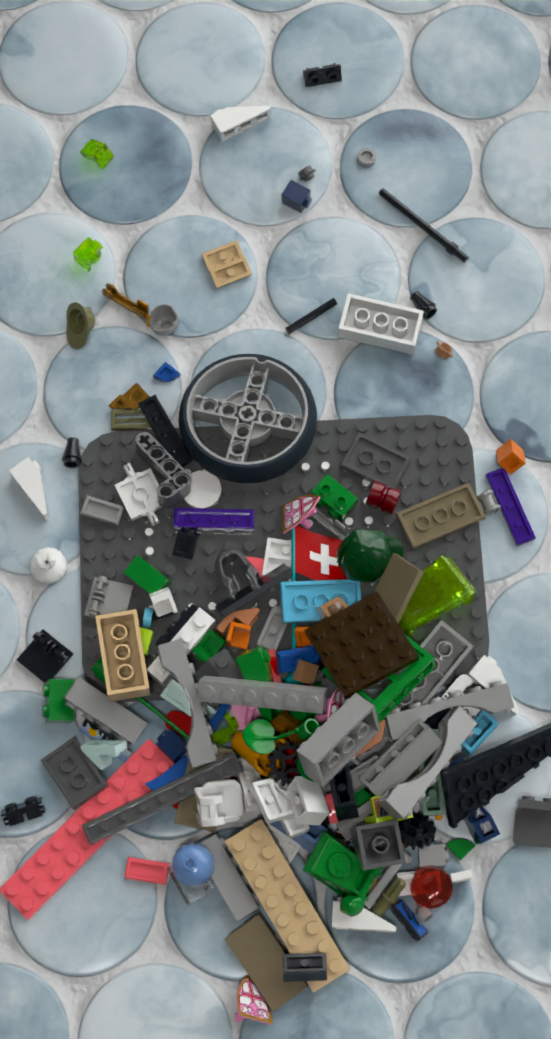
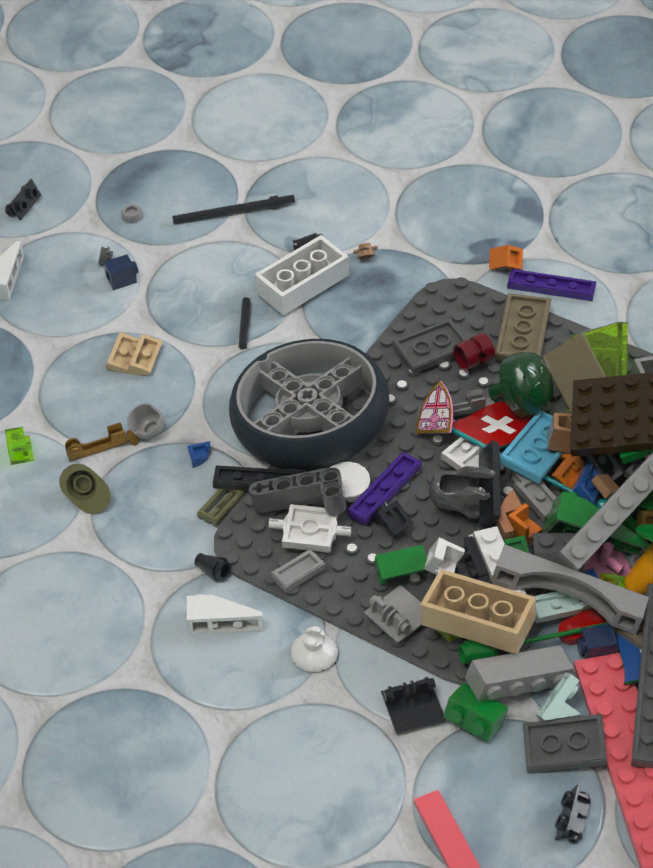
camera: 55 degrees left, 25 degrees down
(94, 732) = (529, 704): sticker -> none
(130, 399) = (199, 491): pearl gold slope -> none
(334, 498) = (457, 388): green brick -> none
(488, 502) = (537, 291): light grey bush -> none

